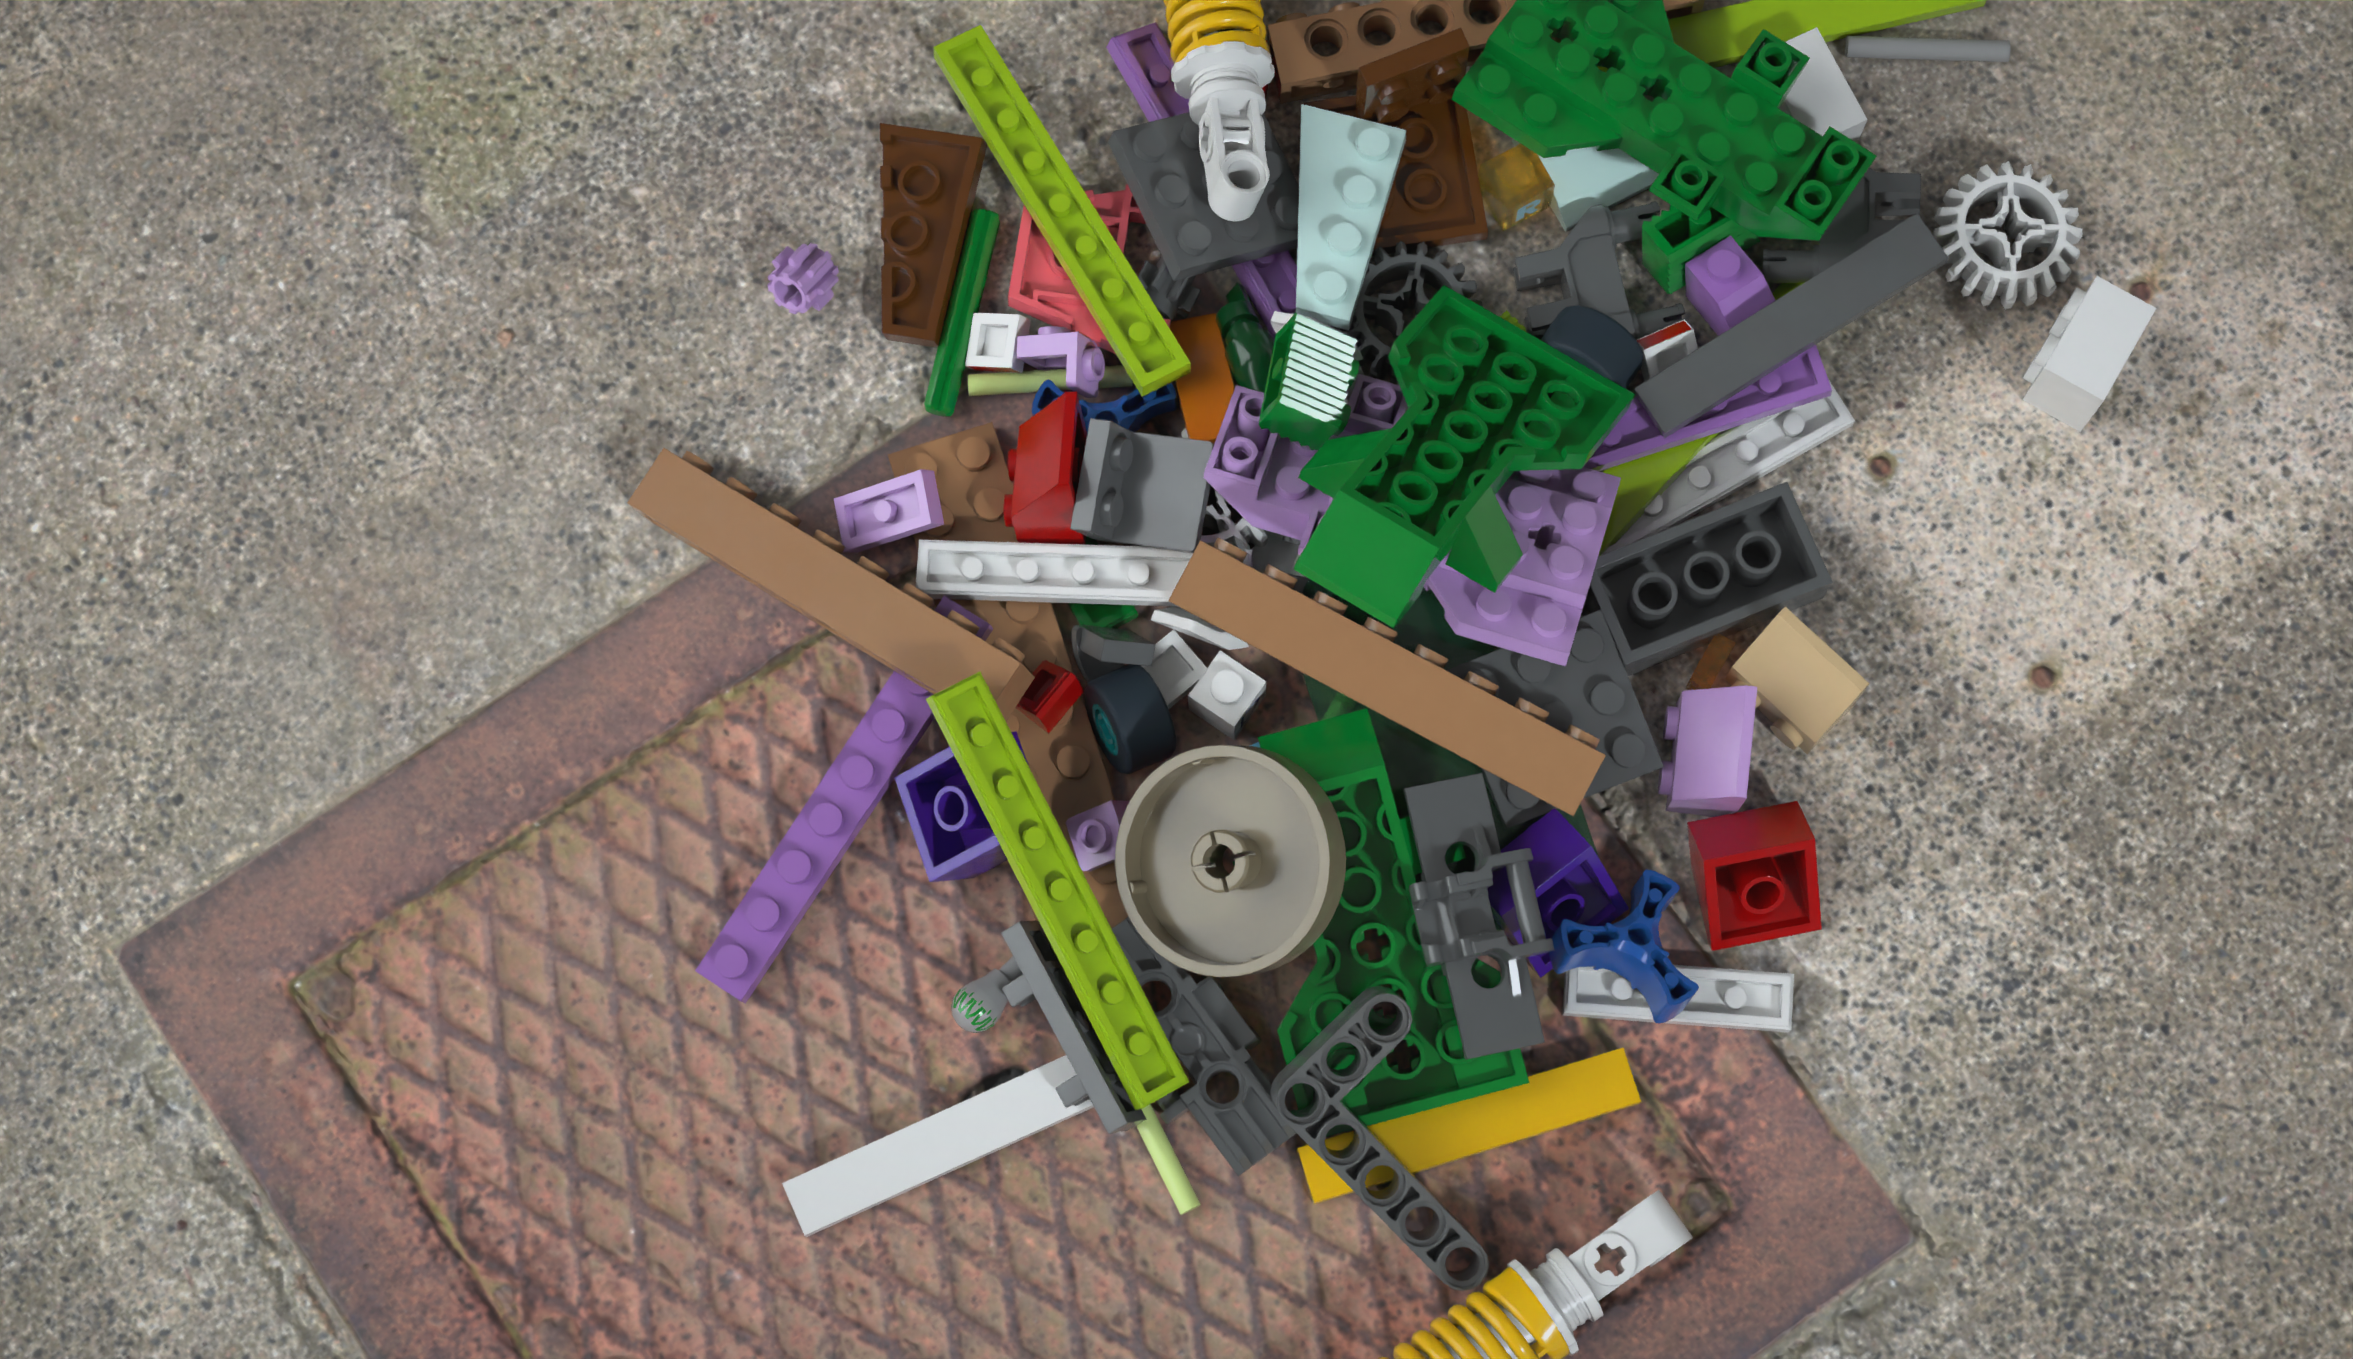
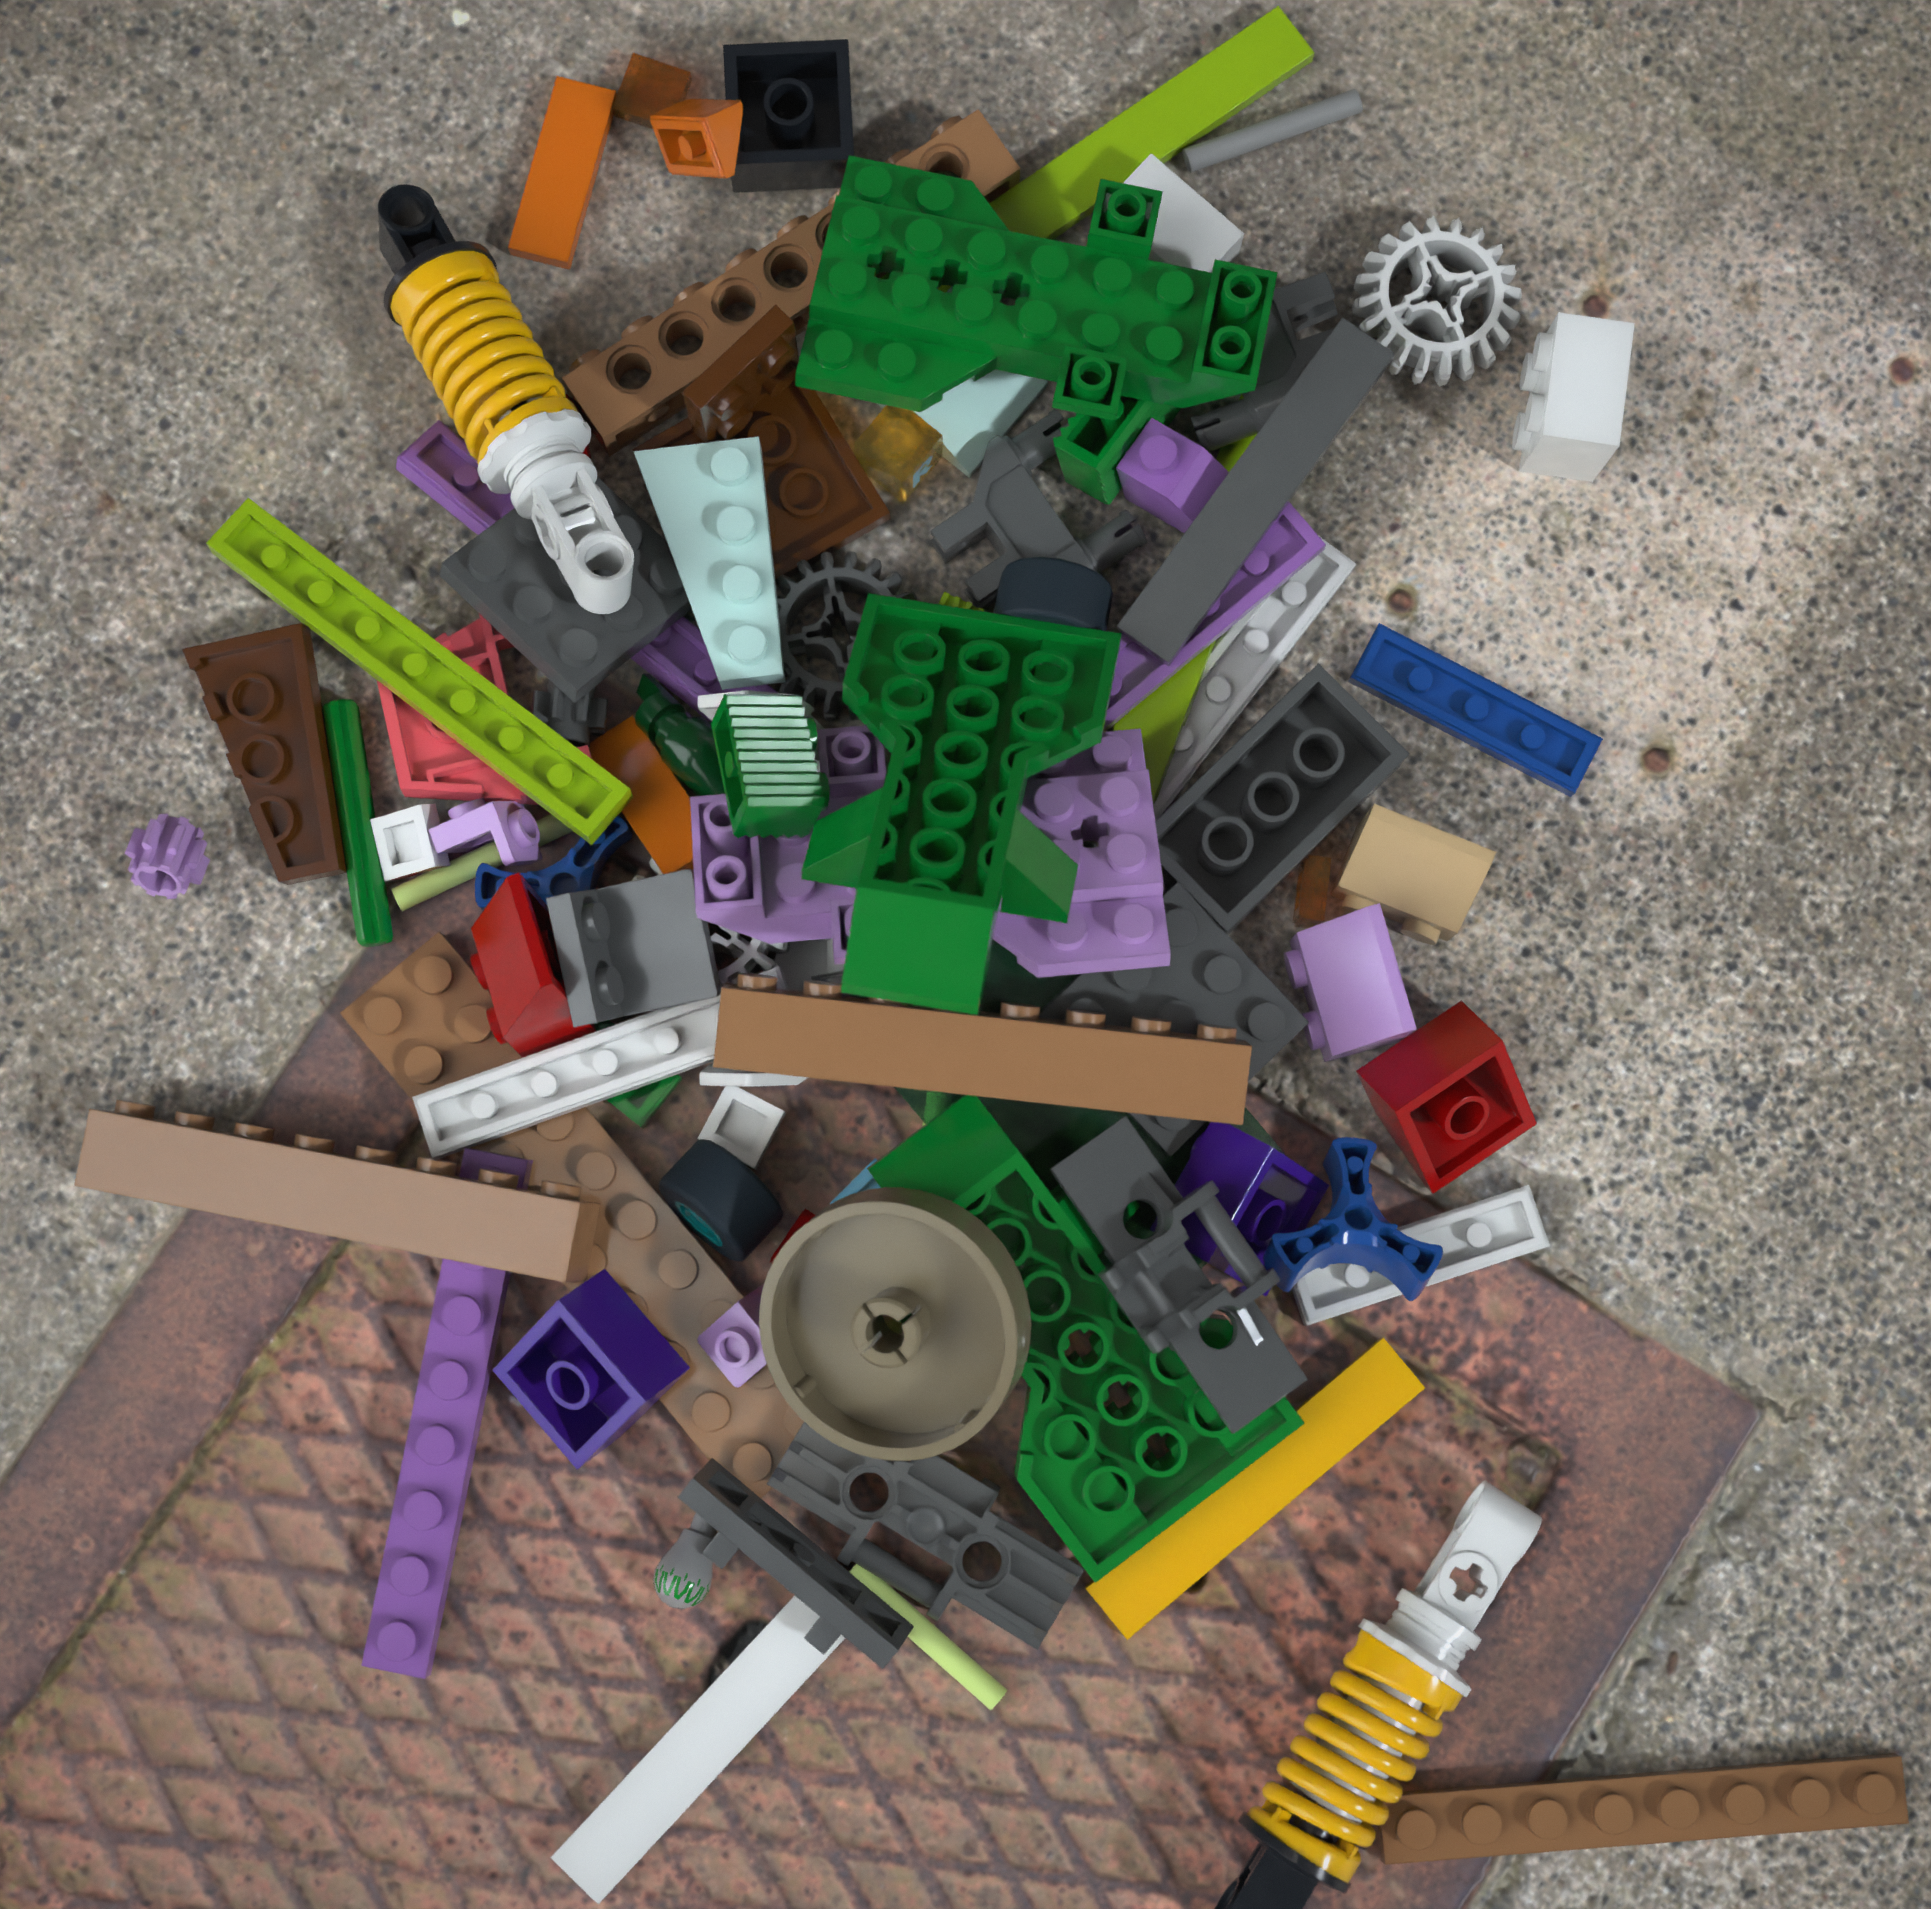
camera: 30 degrees left, 5 degrees up
(889, 511) = (366, 1077): lavender plate -> none
(1049, 695) = (623, 1210): red slope -> none
(1057, 890) = (719, 1431): lime tile -> none
(1107, 649) = (666, 1131): dark grey tile -> none
(1227, 695) = (814, 1130): white brick -> none
(1366, 1150) = (1163, 1568): dark grey beam -> none
(1666, 347) = (1132, 567): white plate -> none
(1906, 576) = (1475, 710): none -> blue tile

